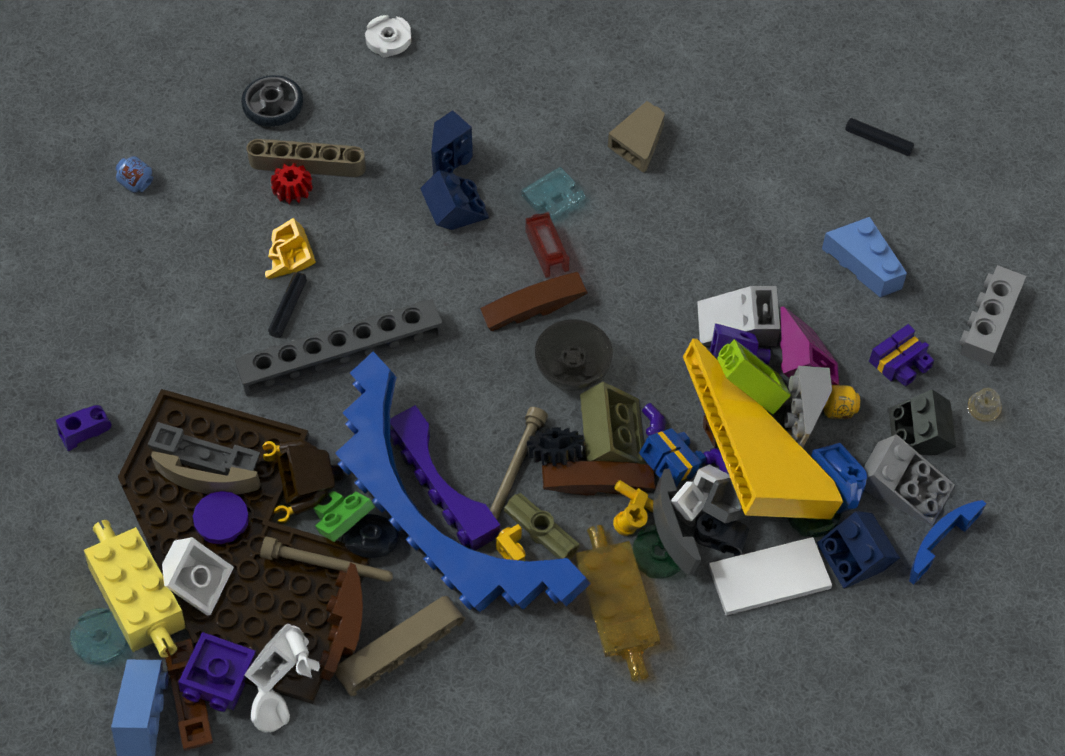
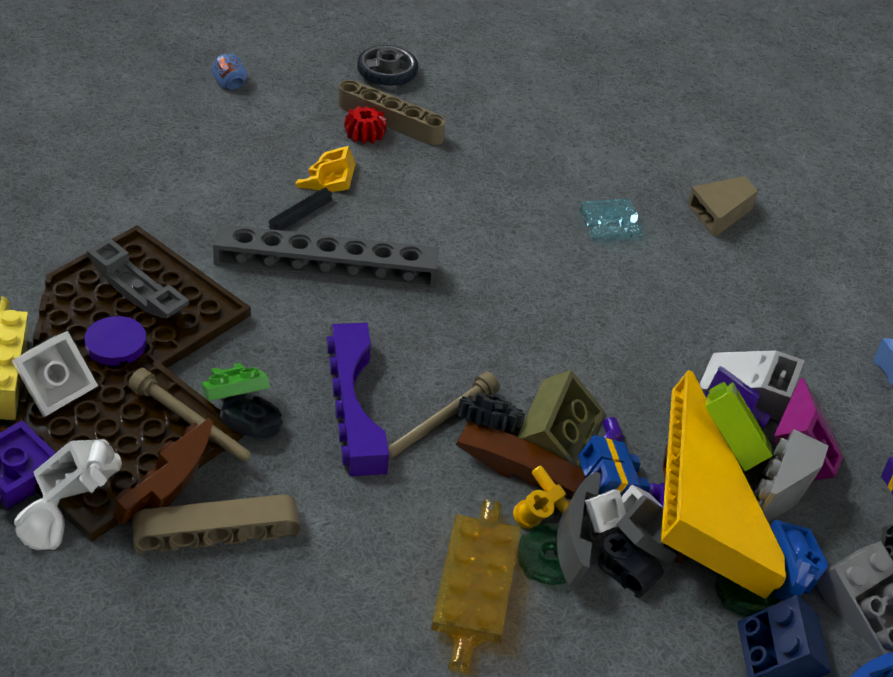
camera: 20 degrees right, 15 degrees down
(82, 426) = (46, 226): dark purple leg -> none
(238, 480) = (150, 314): dark tan slope -> none
(304, 474) = (220, 338): dark brown torso -> none
(388, 45) = (522, 58): white plate -> none
(451, 143) = (529, 143): dark blue slope -> none
(453, 200) = (509, 187): dark blue slope -> none
(474, 574) = (334, 488): blue arch -> none
(507, 543) = (389, 482): yellow bracket -> none
(530, 517) = (433, 479): olive piece -> none
(534, 299) = (551, 289): reddish brown slope -> none
(546, 242) = (581, 248): clear red window -> none
(573, 354) = (553, 341): clear smoke piece -> none
(769, 576) = (666, 631): white tile -> none
(842, 403) = (829, 495): yellow head -> none

